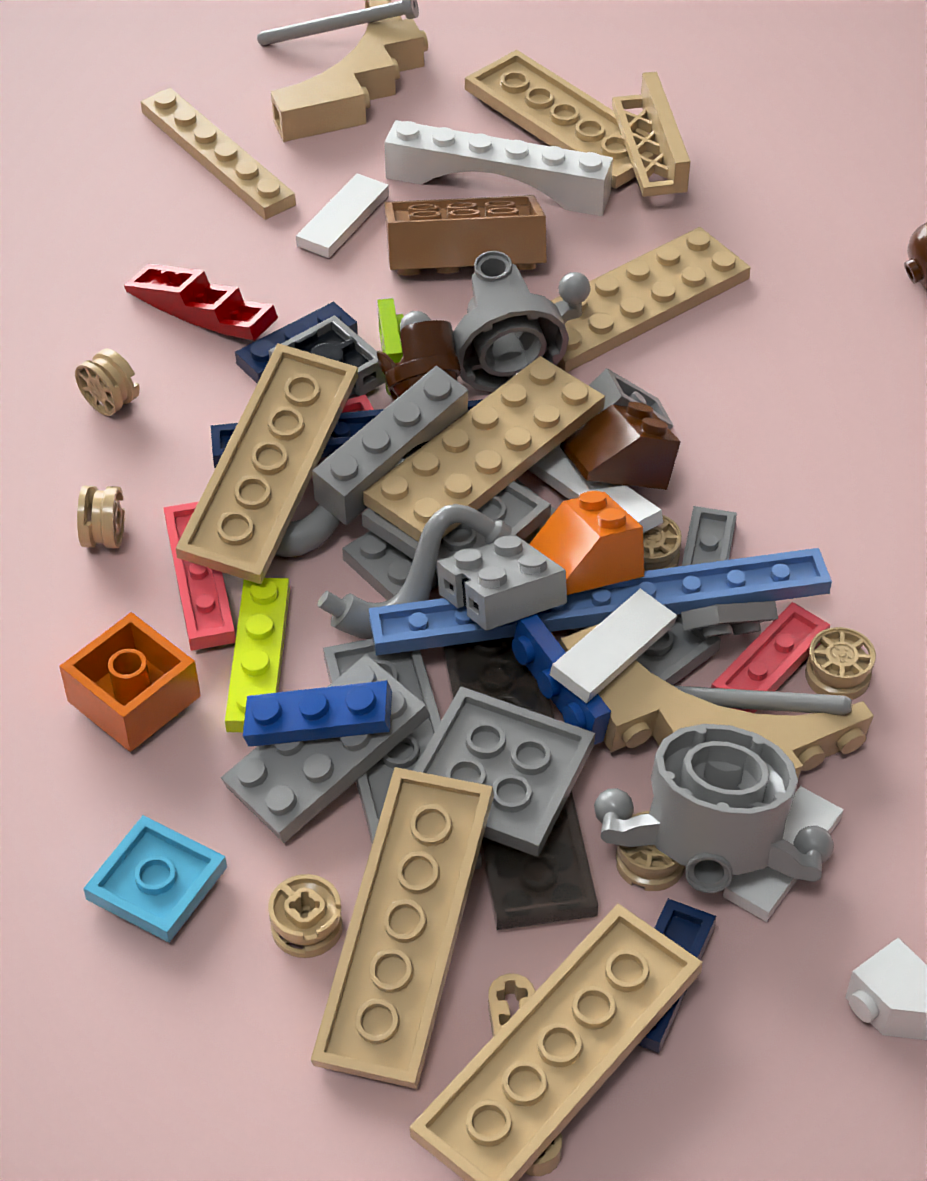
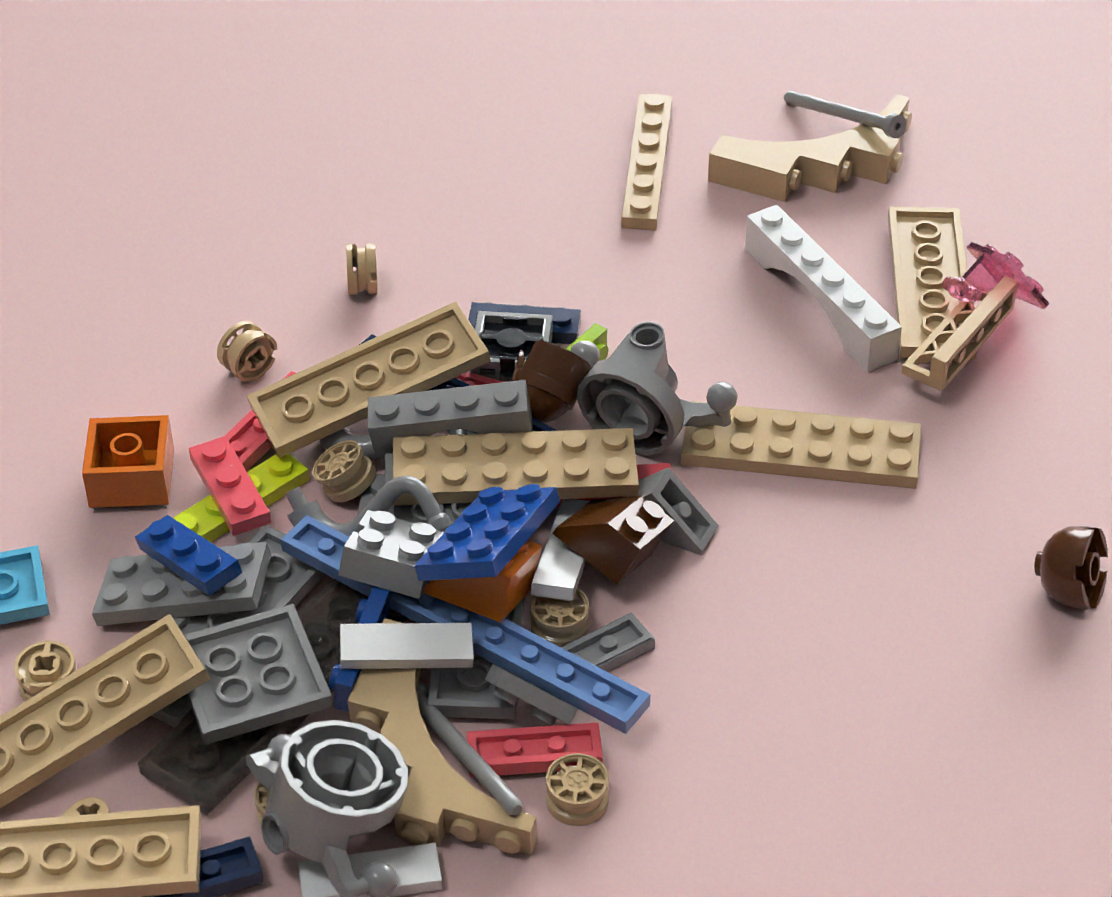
camera: 45 degrees right, 5 degrees down
(193, 299) = (496, 255): red slope -> none
(252, 636) = (229, 485): none -> coral plate
(331, 558) = (344, 471): none -> tan wheel
(342, 215) = (673, 255): white tile -> none
(458, 230) = (733, 317): medium nougat slope -> none
(574, 507) = (487, 533): none -> blue plate
(623, 80) = (987, 273): none -> clear pink plate

